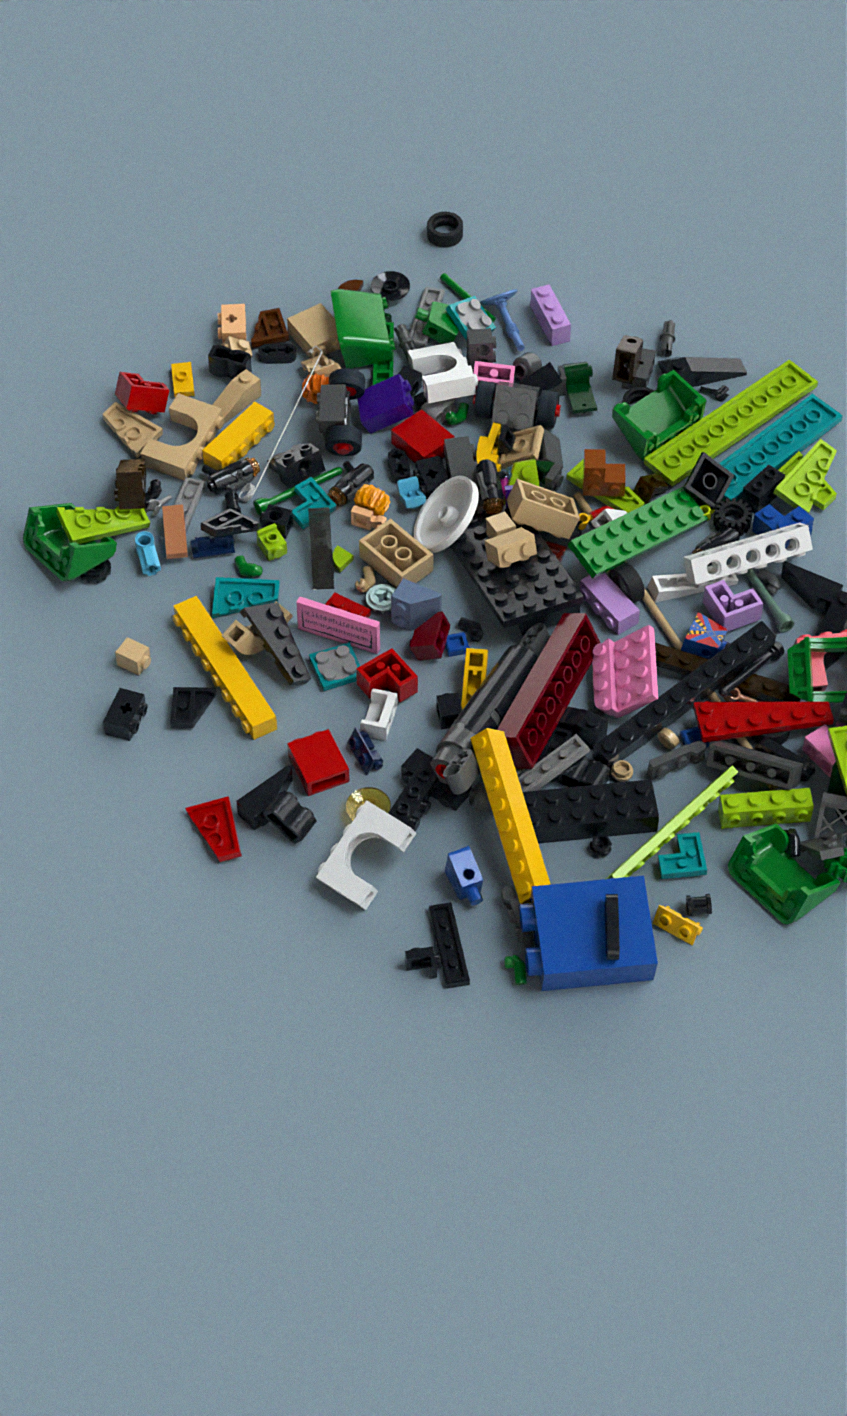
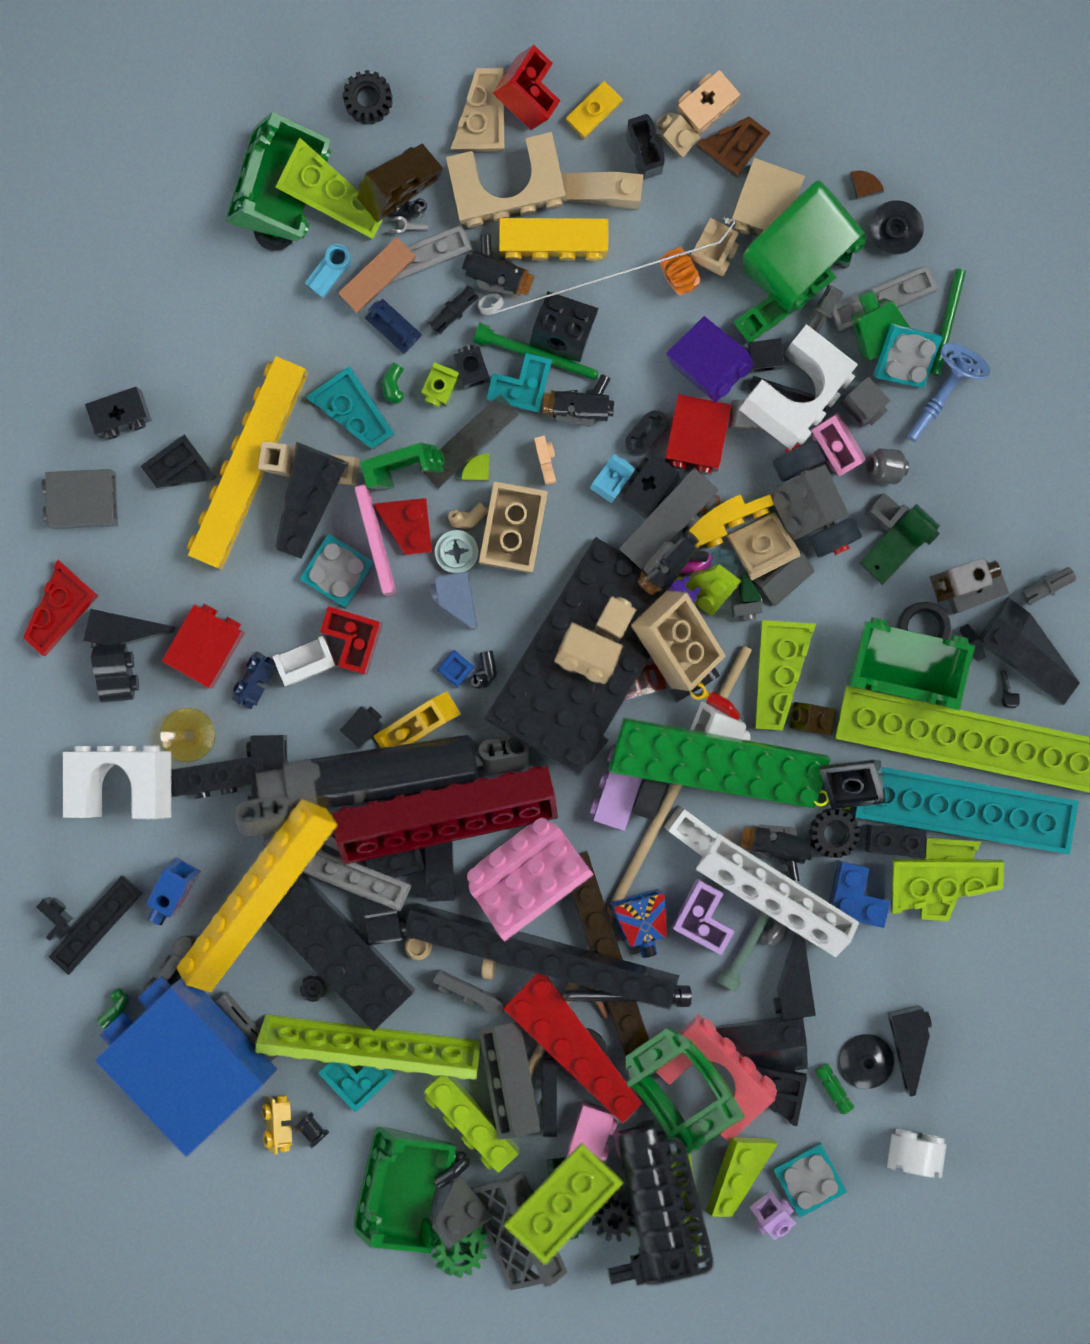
camera: 50 degrees right, 35 degrees up
(64, 484) = (361, 82): none -> black tyre
(133, 656) = (193, 363): tan brick -> none
(159, 768) = (80, 498): none -> dark grey brick
(229, 523) = (417, 329): black wing -> none
(277, 353) = (702, 184): black beam -> none
(308, 562) = (378, 469): none -> green panel
(336, 409) = (653, 320): brick -> none
(372, 499) = (567, 447): light orange gear -> none
(430, 637) = (435, 643): dark red slope -> none
(445, 219) = (1049, 208): black tyre -> none
(446, 513) = (595, 546): white dish -> none
(460, 416) = (761, 443): green arm -> none
(506, 440) = (756, 526): black slope -> none
(545, 378) = (866, 503): black panel -> none
(550, 315) = (984, 435): lavender brick -> none
(601, 477) = (774, 669): dark orange brick -> none
(612, 927) = (180, 1096): black beam -> none
(691, 735) = (510, 985): blue tile -> none

